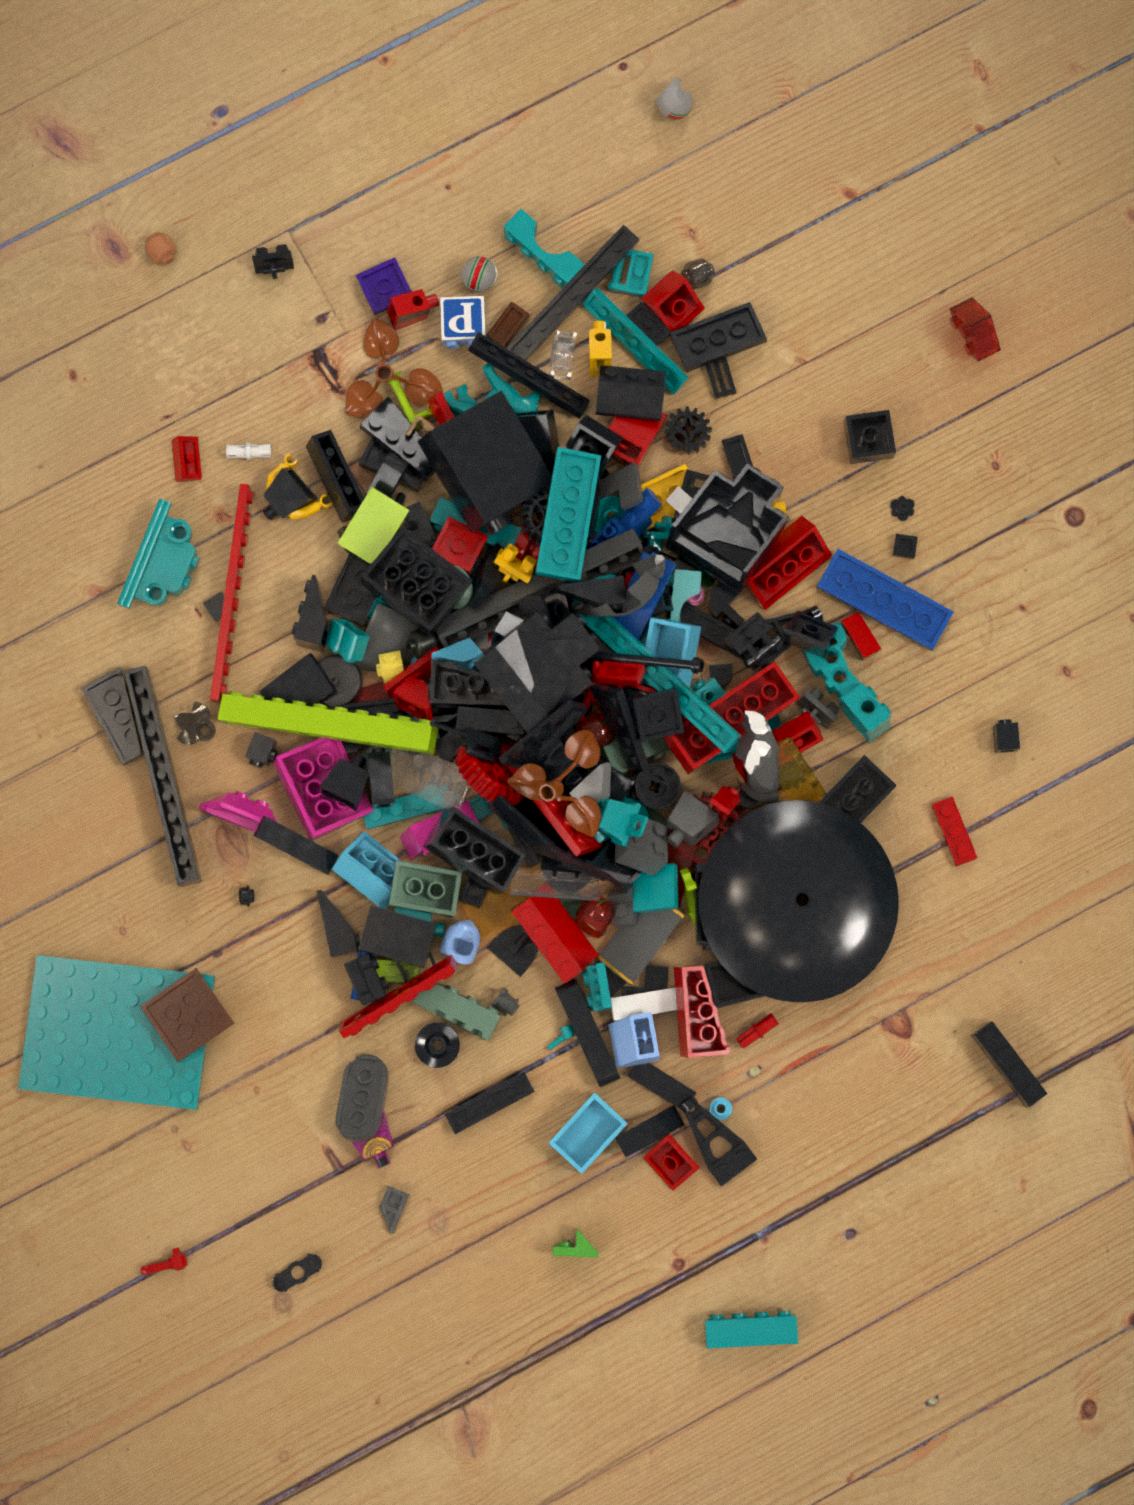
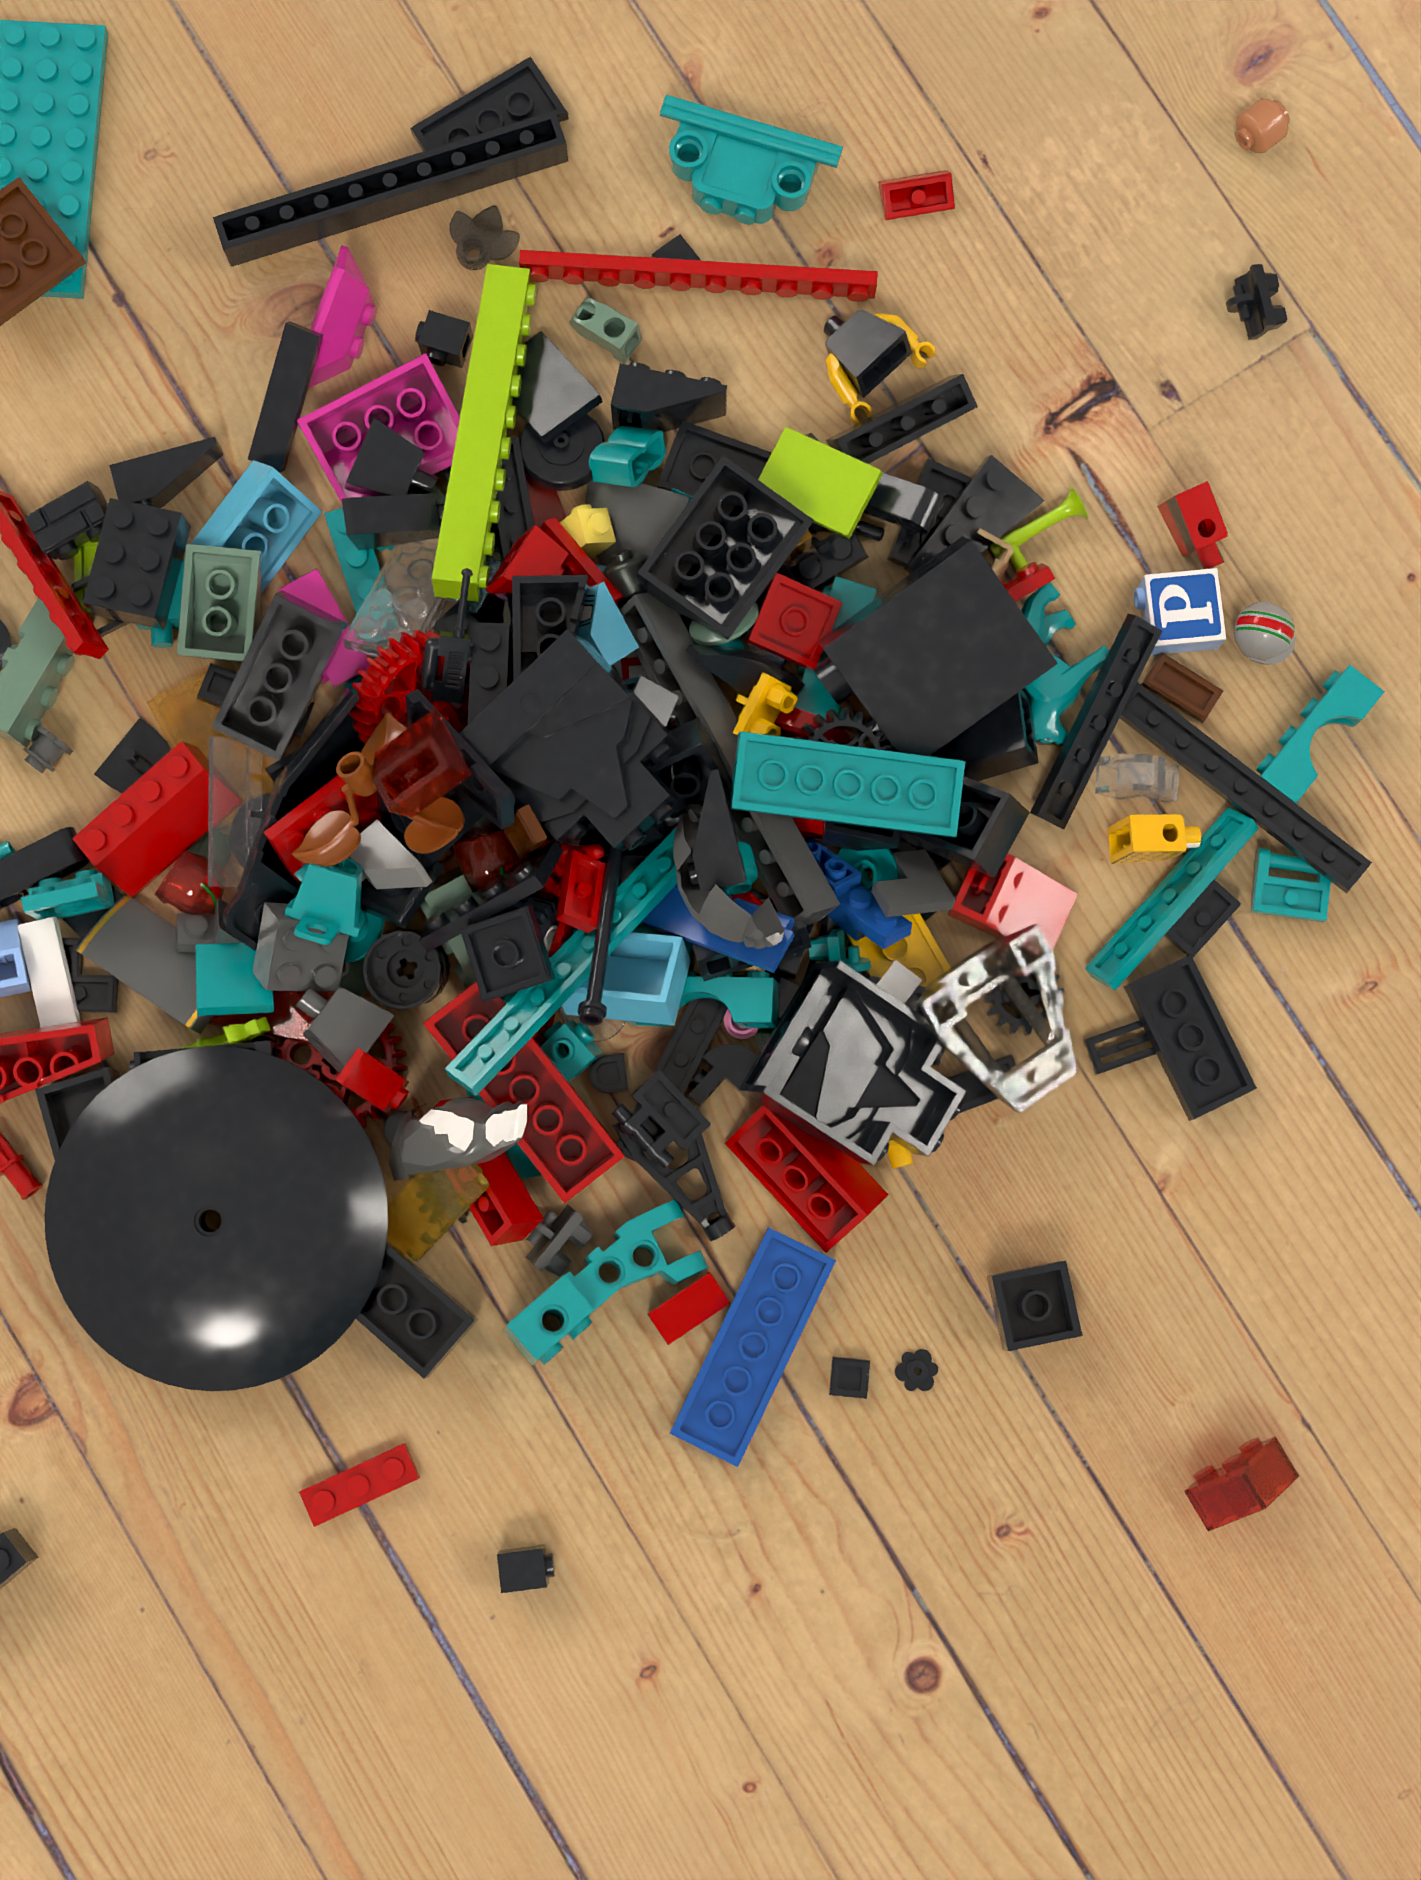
camera: 85 degrees right, 0 degrees up
(246, 895) = (208, 334): black plate -> none
(248, 451) = (935, 287): white pin -> none
(260, 651) = (607, 328): none -> sand green leg
(362, 397) = (1041, 458): dark orange plant -> none
(382, 283) = (1235, 478): dark purple plate -> none
(461, 941) = (146, 673): light blue piece -> none
(548, 754) = (418, 766): none -> clear red slope
(589, 698) = (526, 833): none -> reddish brown tile
(630, 393) = (1079, 891): black slope -> none
(673, 301) = (1244, 958): red slope -> none
(678, 454) = (976, 975): none -> clear smoke windscreen
(698, 273) = (1298, 997): clear smoke head -> none
(810, 634) = (681, 1217): black slope -> none

